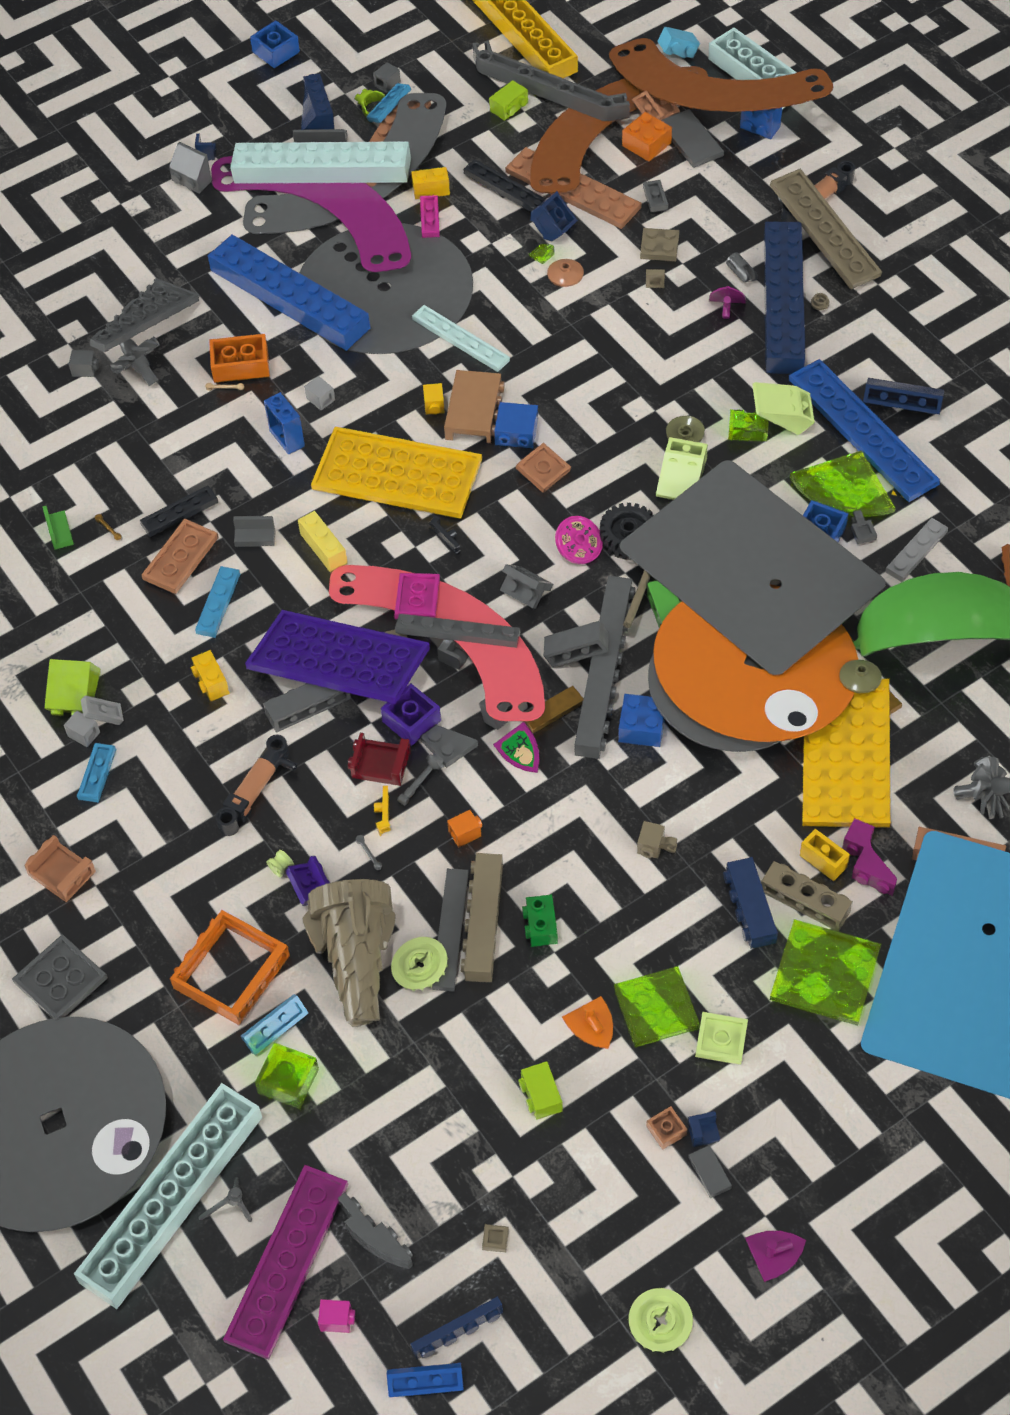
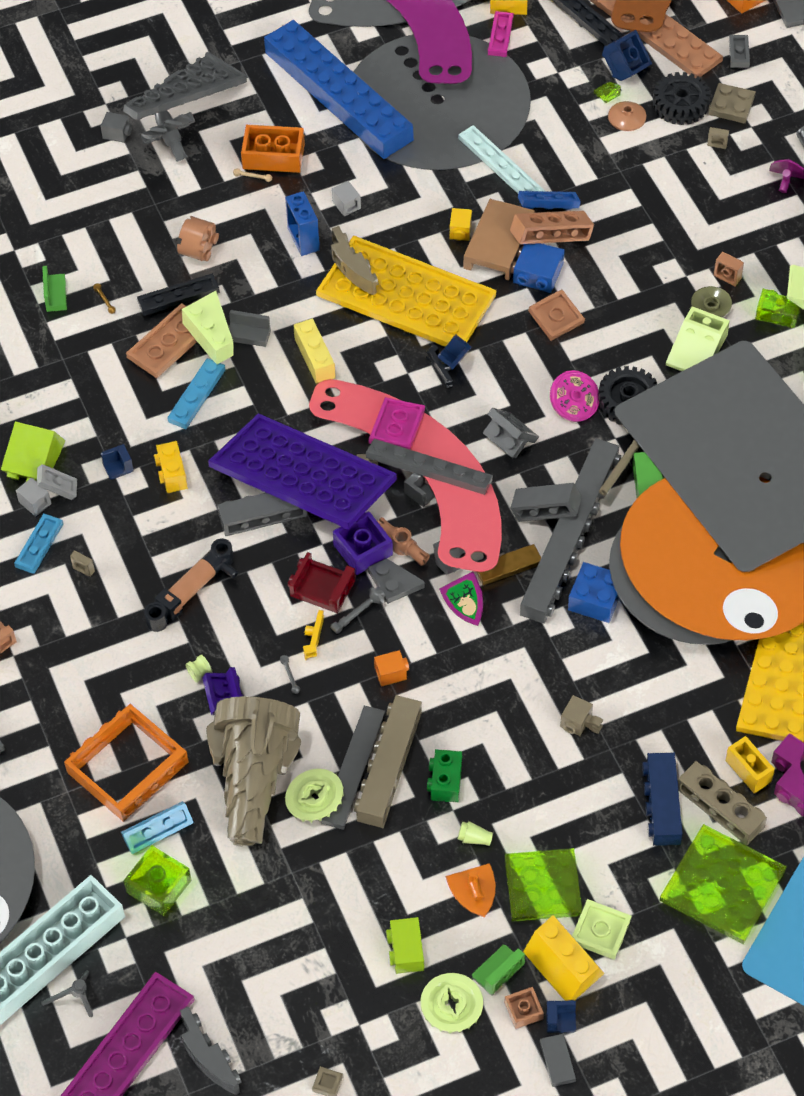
camera: 10 degrees right, 0 degrees up
(144, 784) = (82, 563): none -> dark tan tile
(156, 680) = (117, 462): none -> dark blue panel
(186, 455) = (197, 238): none -> nougat brick
(217, 536) = (209, 327): none -> yellowish green wedge
(340, 454) = (351, 263): none -> dark tan slope
(454, 709) = (408, 547): none -> nougat pin
(456, 518) = (454, 351): none -> dark blue panel
(511, 361) = (548, 199): none -> blue plate
(521, 386) = (551, 227): none -> nougat brick
(580, 971) = (473, 834): none -> yellowish green cone
(603, 1123) = (461, 990): none -> yellowish green gear
(612, 247) = (681, 98): none -> black wheel
(633, 1095) = (499, 968): none -> bright green panel
(692, 1075) = (562, 960): none -> yellow slope
(694, 397) = (728, 269): none -> nougat piece

